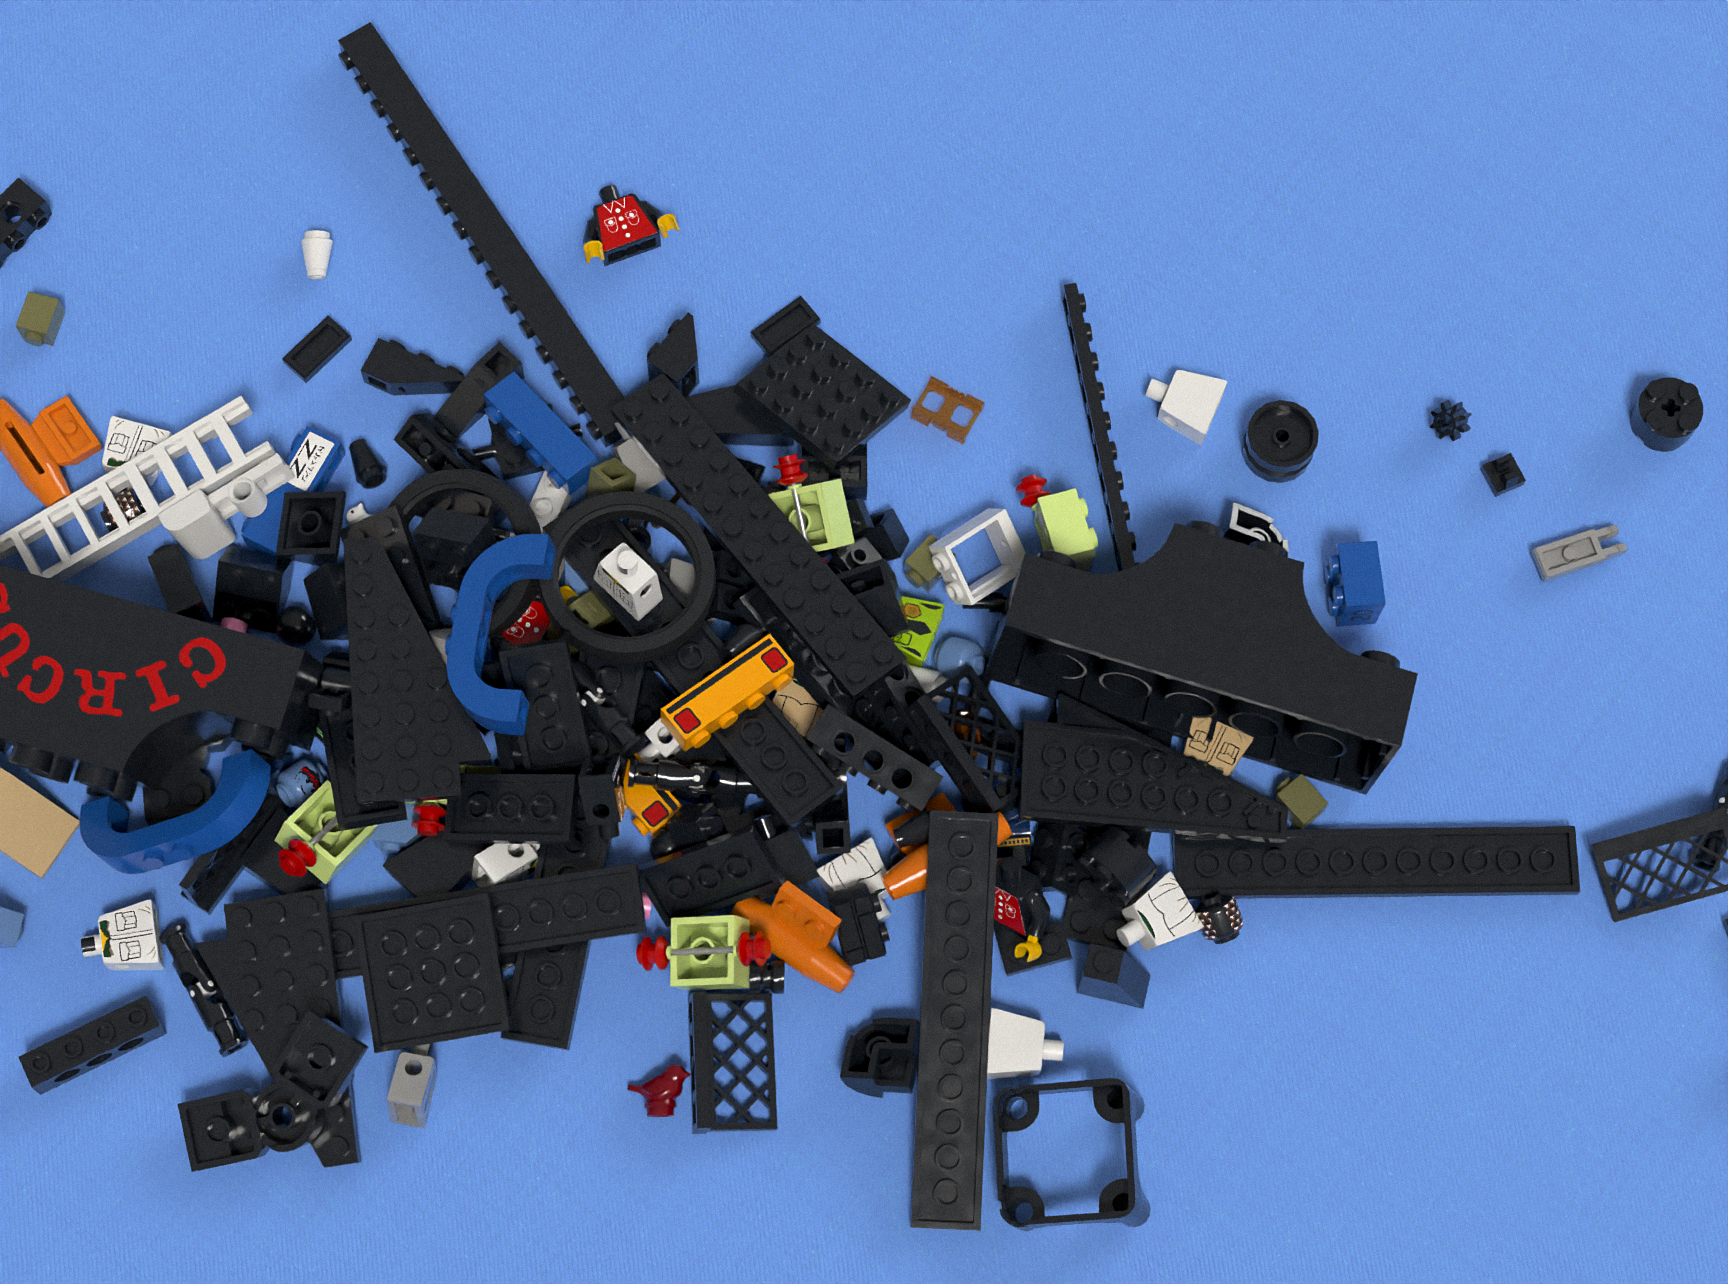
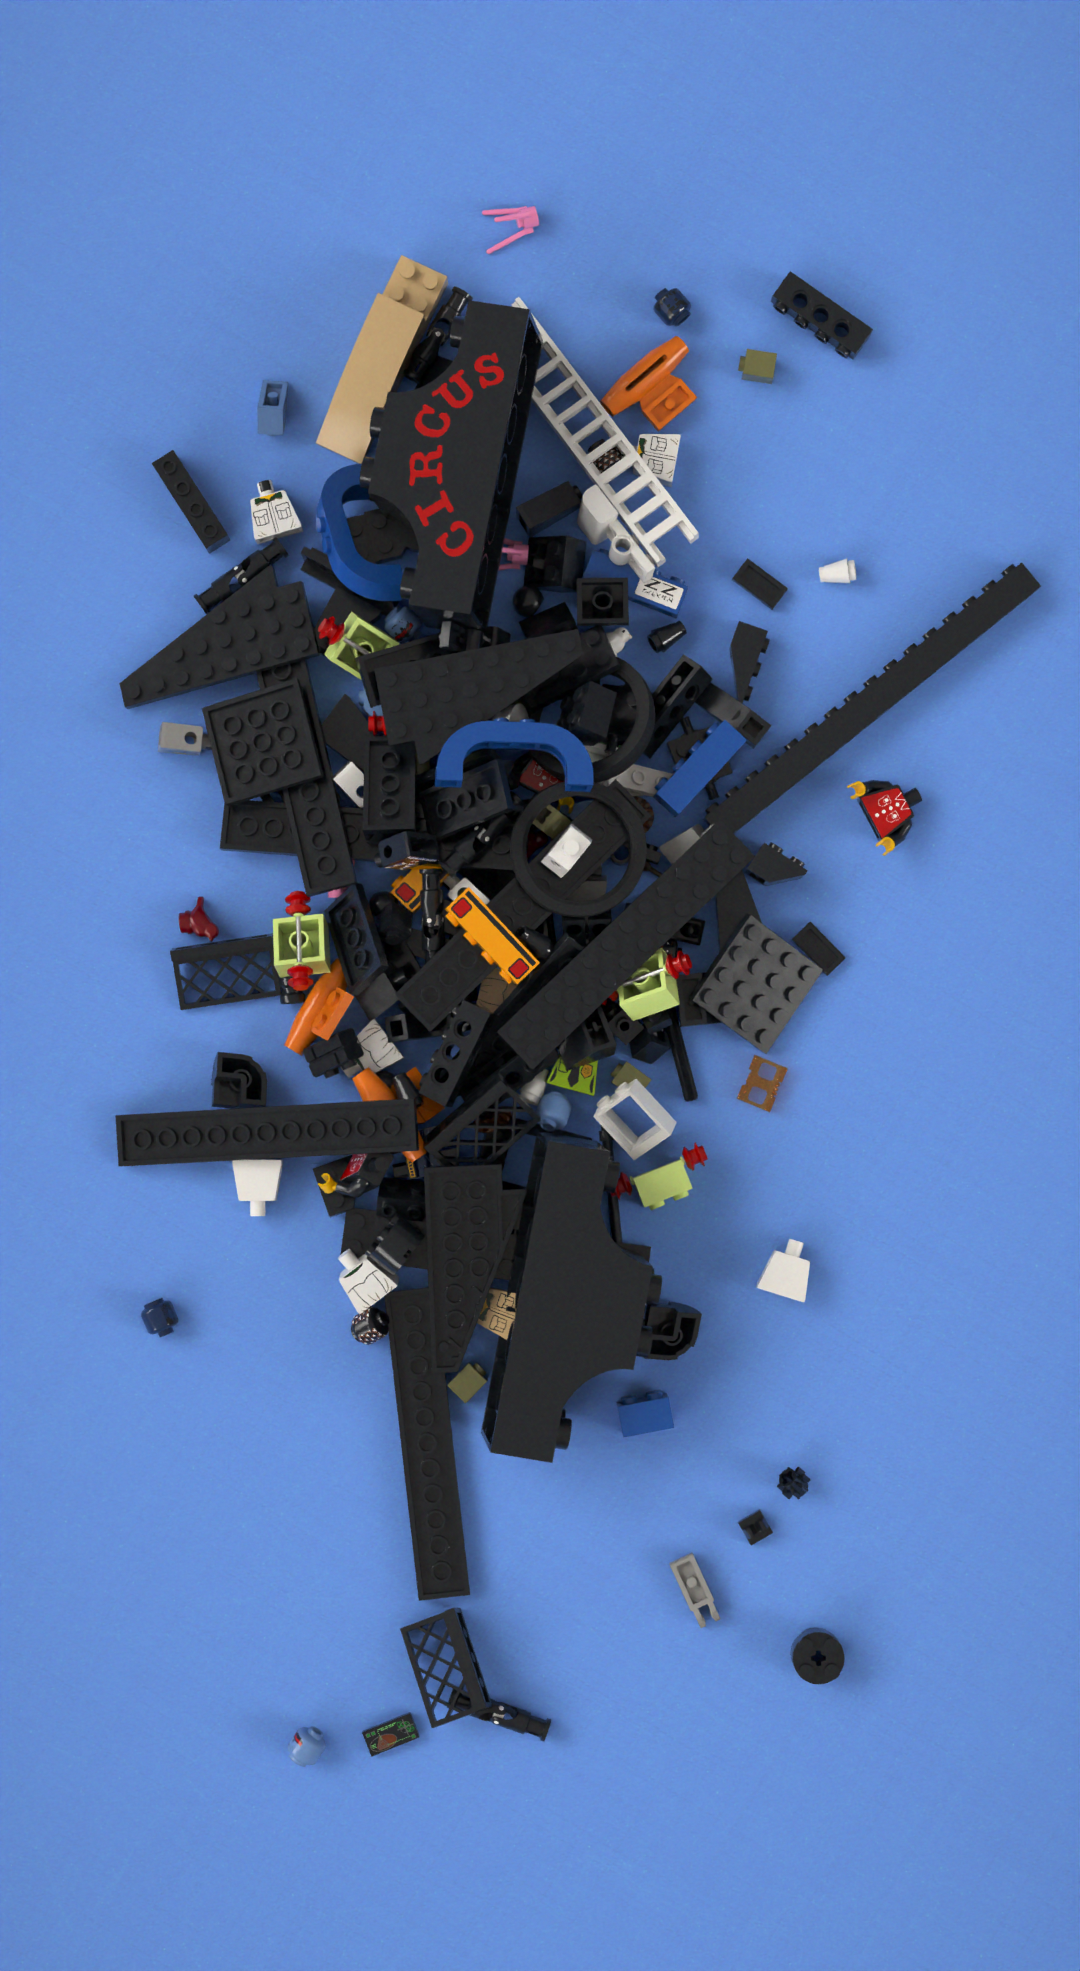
camera: 90 degrees right, 15 degrees up
(248, 1123) = (142, 620): black plate -> none
(610, 477) = (663, 827): olive brick -> none
(915, 500) = (681, 1057): none -> black axle
(1098, 424) = (740, 1209): black plate -> none
(1113, 977) = (313, 1249): black slope -> none
(1119, 1200) = (214, 1257): black piece -> none
(1188, 1195) = (159, 1317): none -> dark blue head
(1280, 441) = (759, 1332): black wheel -> none

